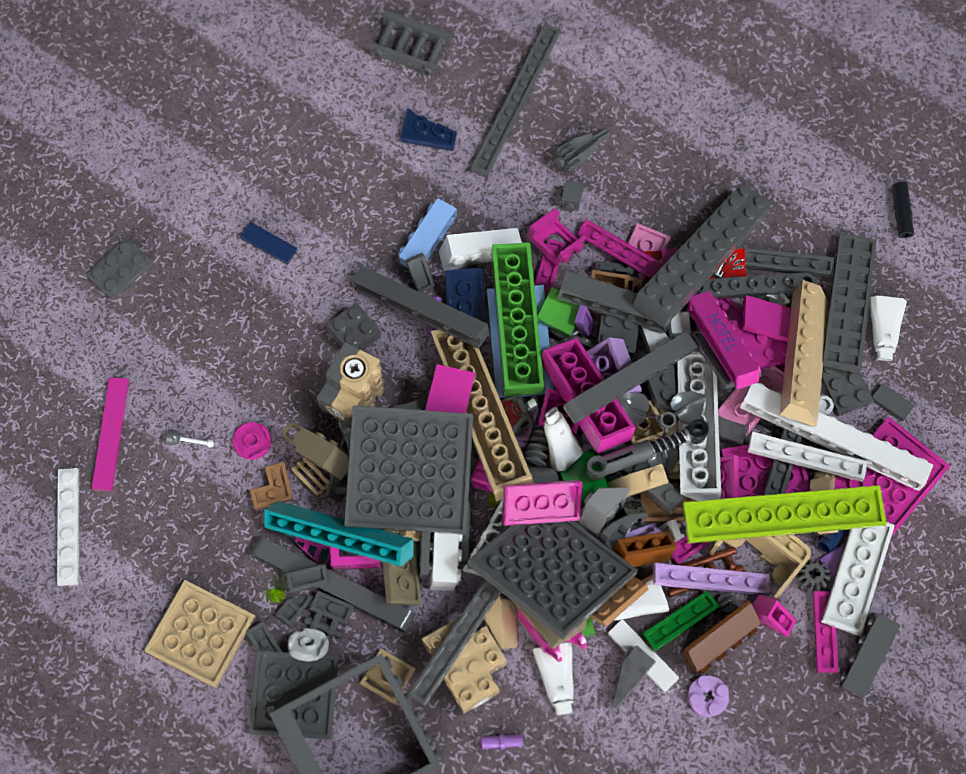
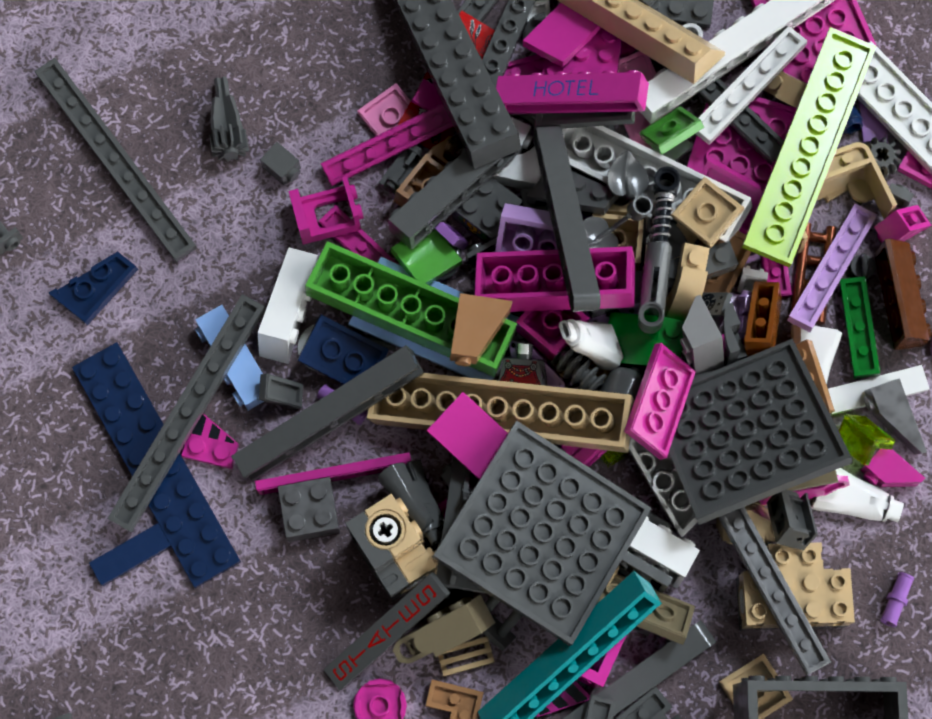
camera: 60 degrees left, 5 degrees up
(297, 413) = (387, 631): none -> dark grey tile
(333, 228) = (179, 500): none -> dark blue plate
(365, 249) = (210, 445): none -> dark pink wing
(374, 224) = (186, 413): none -> dark grey plate
(389, 337) = (335, 473): none -> dark pink tile
(397, 385) = (413, 488): none -> dark grey piece
(510, 631) = (792, 519): none -> dark grey hinge
(524, 360) = (476, 326): none -> medium nougat slope
(589, 691) = (890, 470): none -> dark pink slope
(603, 658) = (863, 437): none -> clear neon green panel
(693, 469) = (707, 212): none -> tan tile
(741, 420) = (671, 130): none -> bright green tile
(793, 601) = (901, 195): none -> dark grey plate

